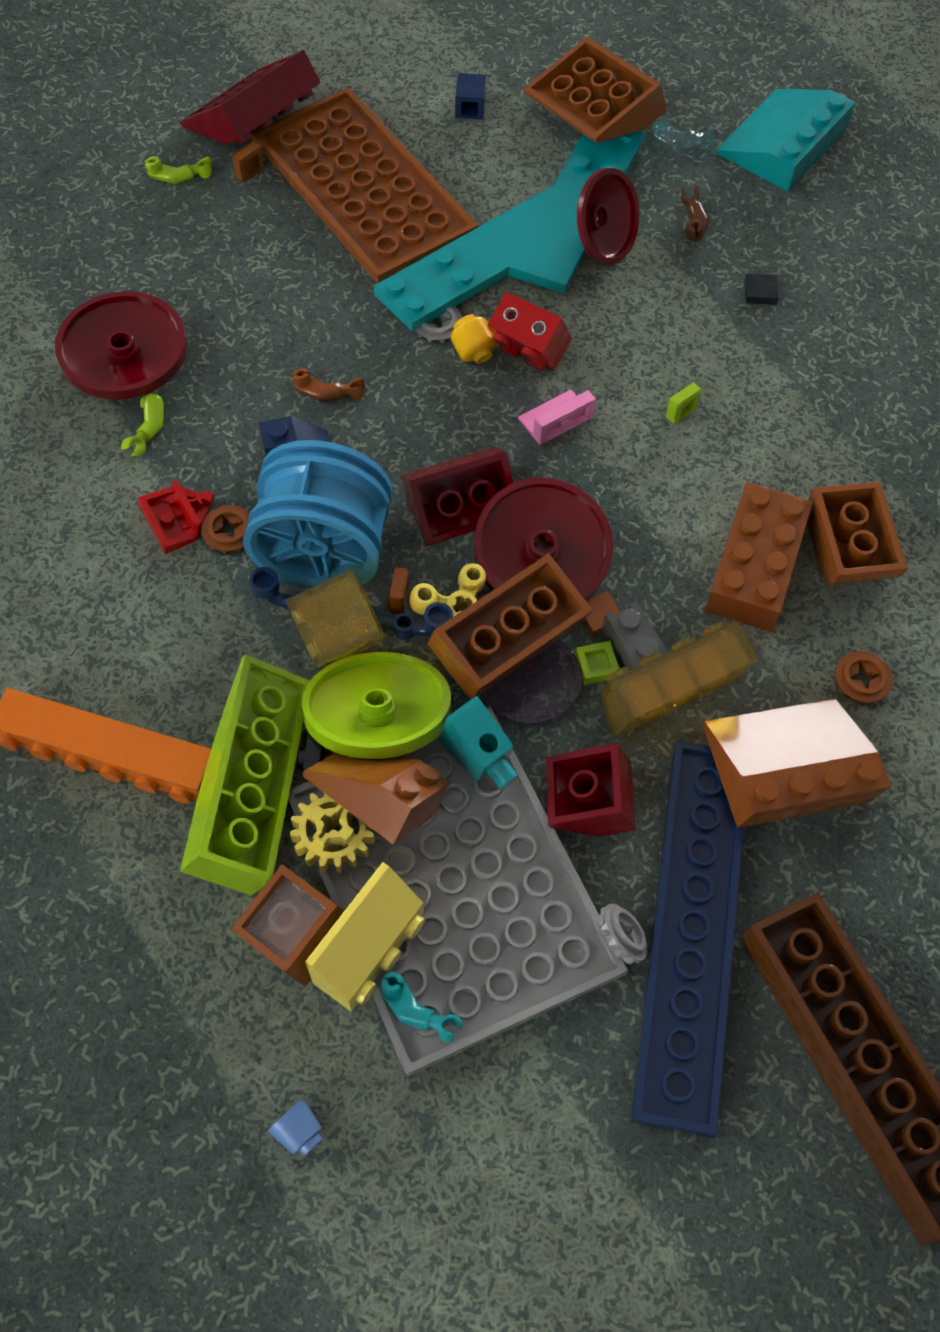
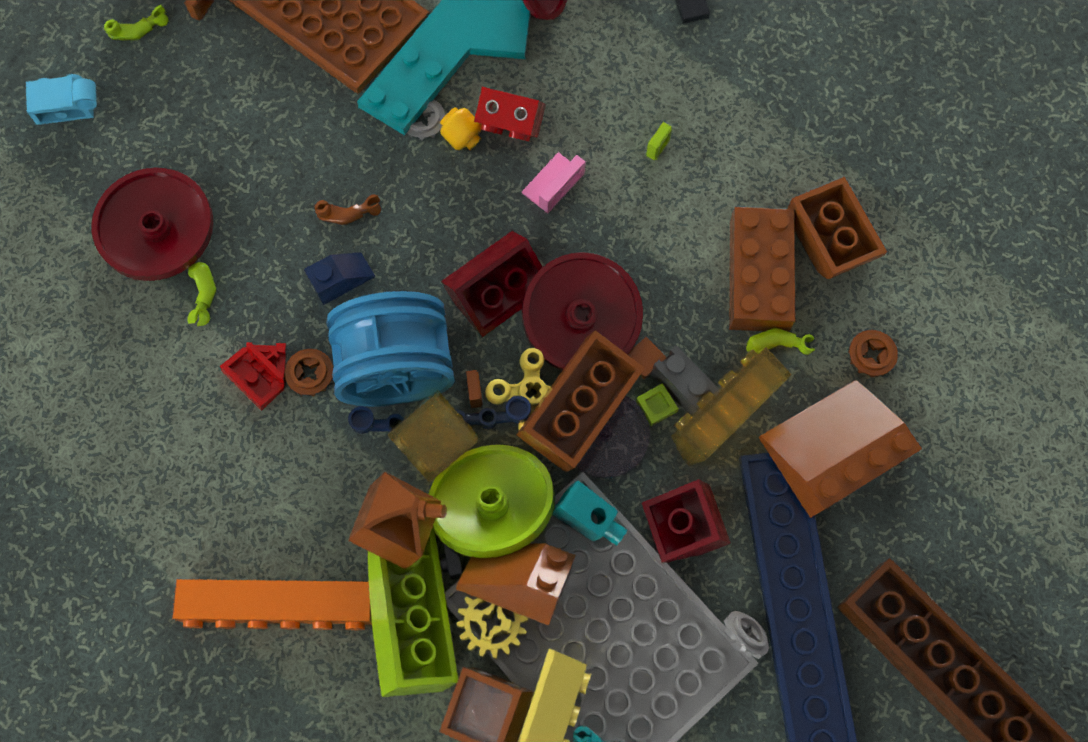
camera: 15 degrees left, 10 degrees up
(76, 213) = (60, 99): none -> medium azure hinge
(260, 684) = (396, 520): none -> dark orange piece
(757, 630) = (776, 337): none -> lime arm

